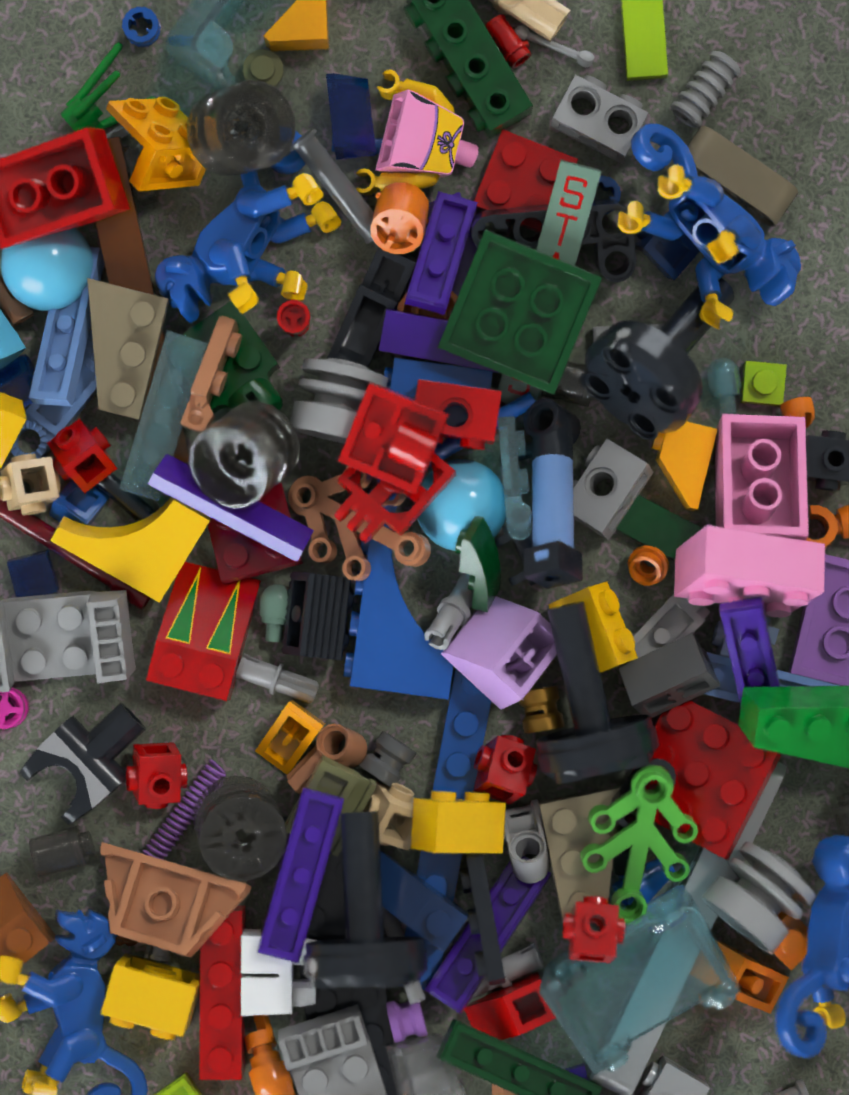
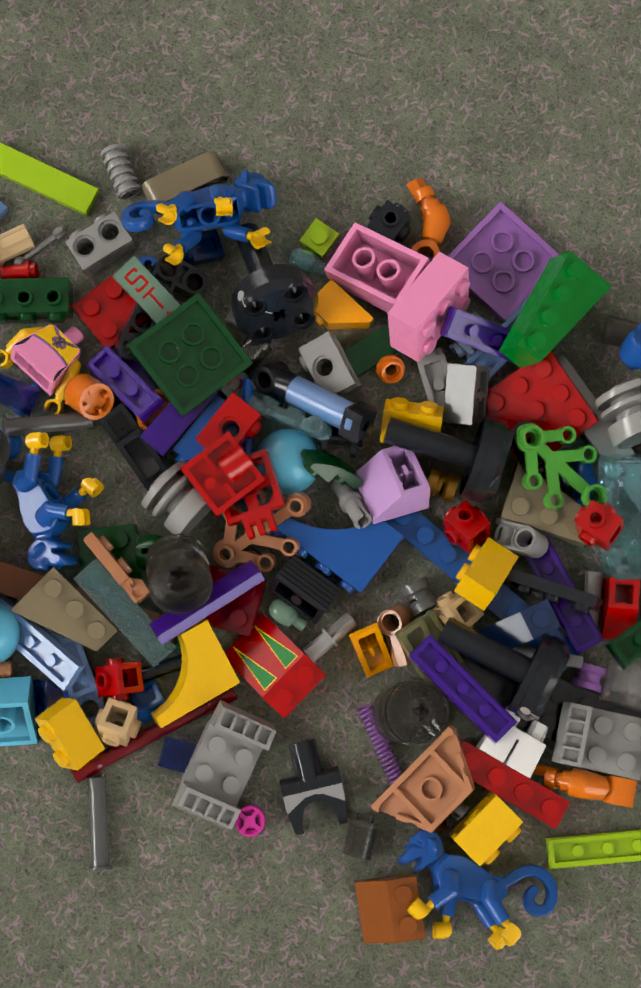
camera: 60 degrees left, 5 degrees down
(156, 774) = (347, 747): red brick -> none
(293, 317) = (111, 496): red pin -> none
(799, 408) = (345, 224): orange hinge -> none

